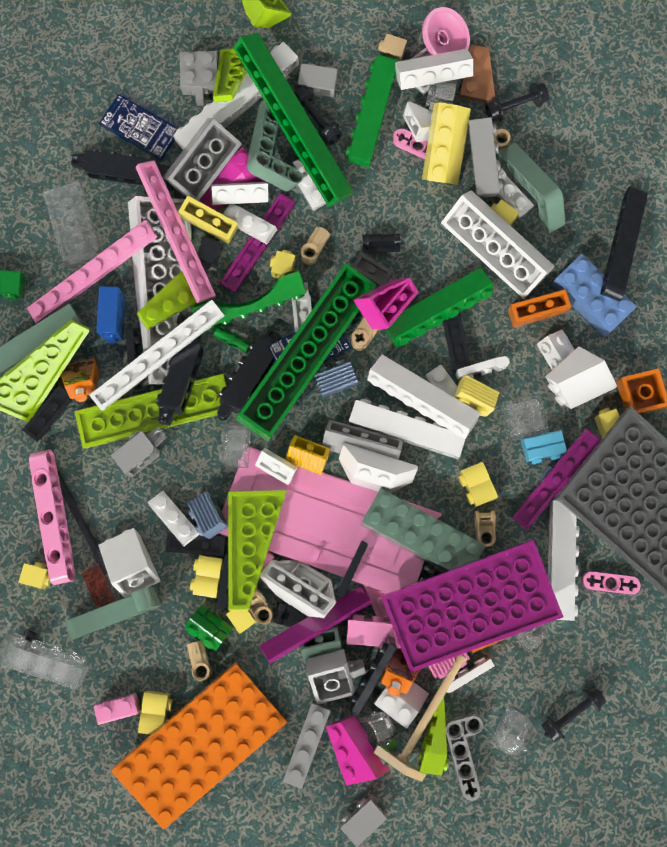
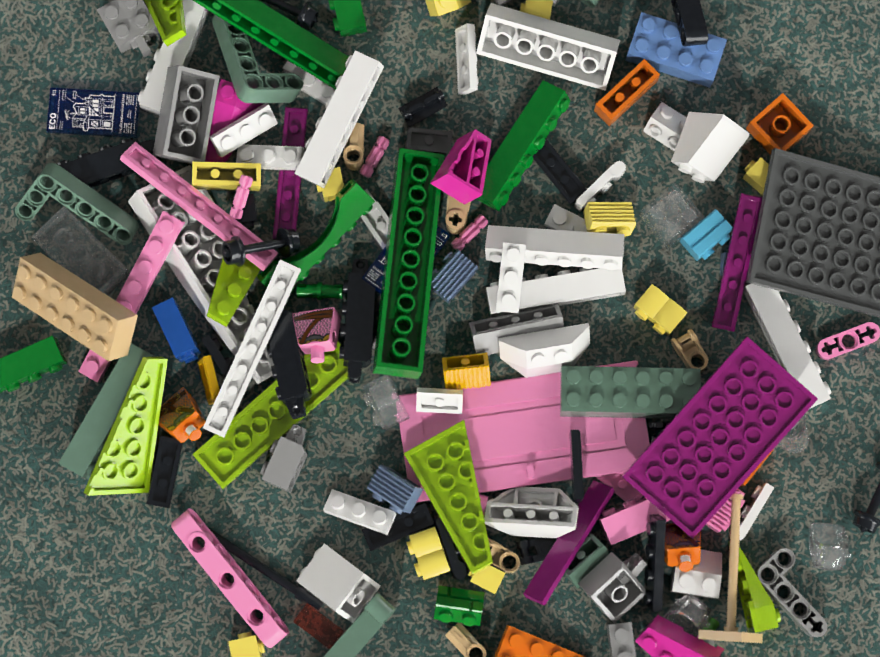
camera: 30 degrees left, 0 degrees up
(44, 257) = (74, 306): none -> tan brick
(94, 184) = (80, 199): none -> sand green beam
(117, 360) = (208, 378): none -> yellow tile
(181, 277) = (235, 252): none -> black piece
(209, 239) = (241, 196): none -> bright pink axle
(213, 368) = (317, 331): none -> torso
(311, 218) = (339, 119): none -> white brick
(326, 261) = (374, 157): none -> bright pink axle
(366, 353) = (469, 232): none -> bright pink axle
(377, 401) = (510, 277): none -> white plate
(432, 223) = (466, 59): none -> white plate

